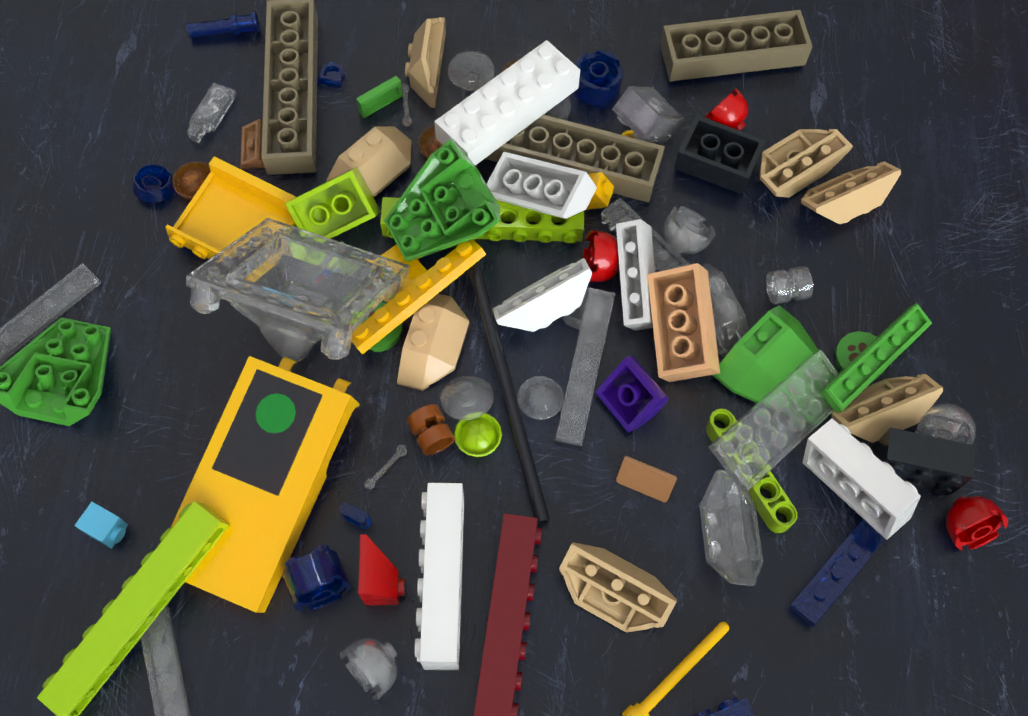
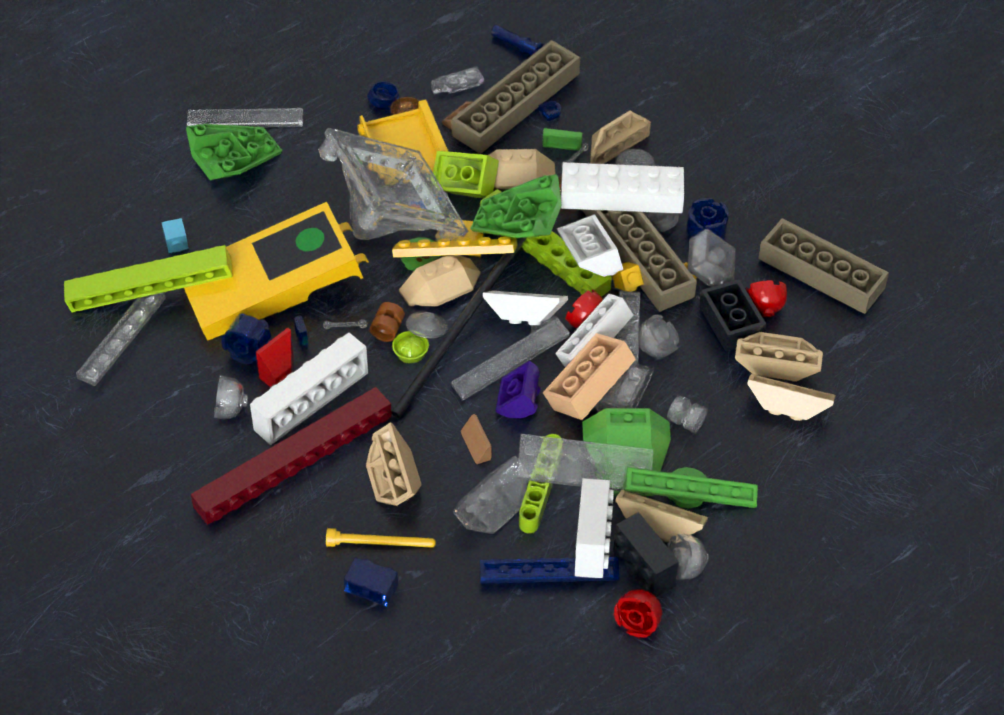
camera: 45 degrees right, 15 degrees down
(540, 397) = (466, 356): clear hat -> none

